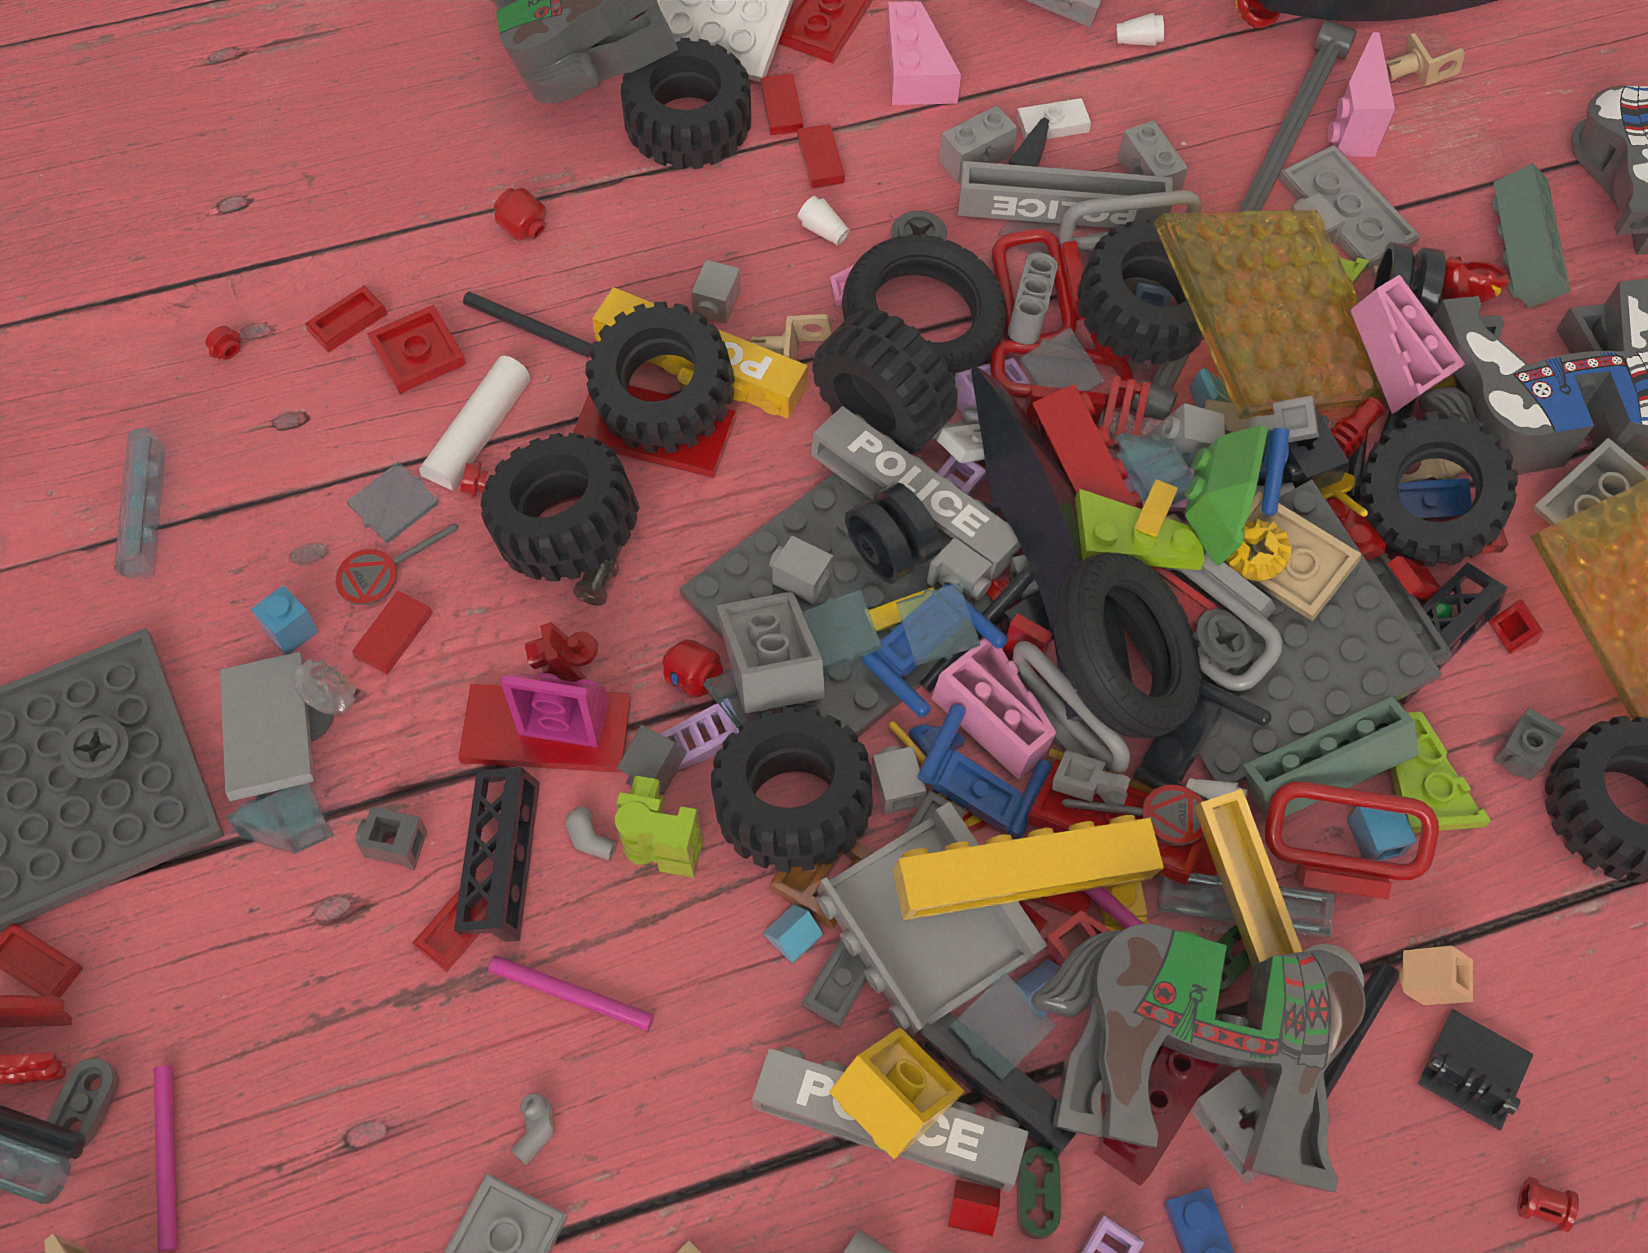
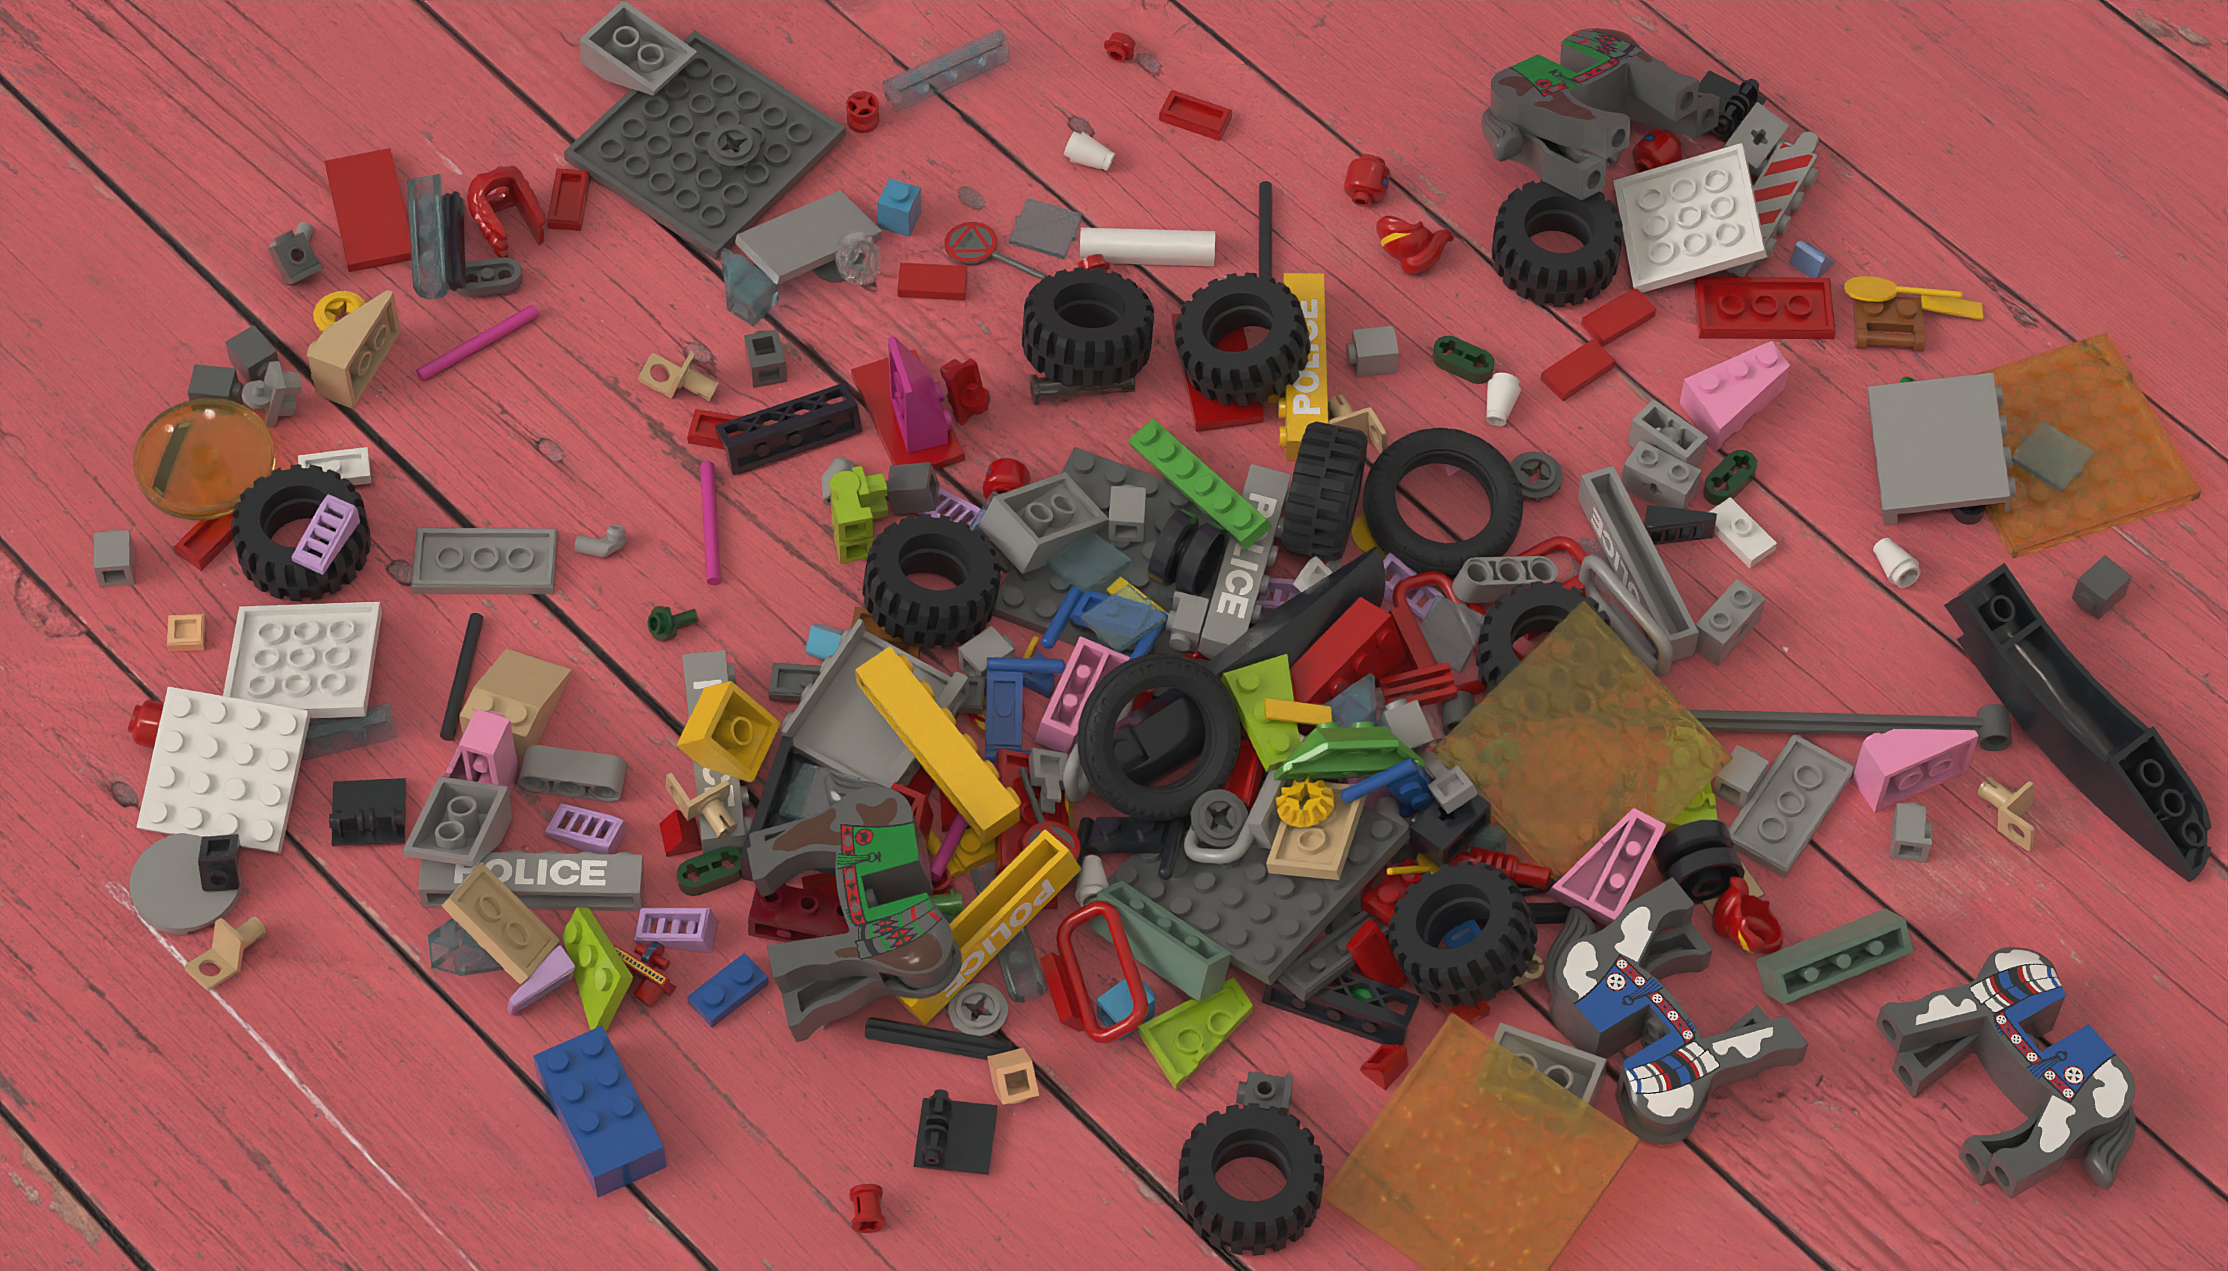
camera: 65 degrees right, 5 degrees down
(128, 597) = (857, 106): none -> red wheel
(328, 424) = (1088, 152): none -> white cone
(360, 943) = (678, 377): none -> tan bracket
(416, 349) = (1191, 174): red plate -> none
(615, 211) = (1412, 244): none -> red hair
(681, 1099) = (664, 624): none -> dark green plate
(762, 233) = (1463, 359): none -> dark green beam
(804, 489) = (1199, 484): none -> bright green plate
(938, 113) = (1668, 433): none -> light grey brick
(983, 1157) = (707, 804): none -> tan bracket
(1001, 97) = (1725, 473): none -> dark green beam
(1416, 136) = (1910, 833): none -> light grey brick

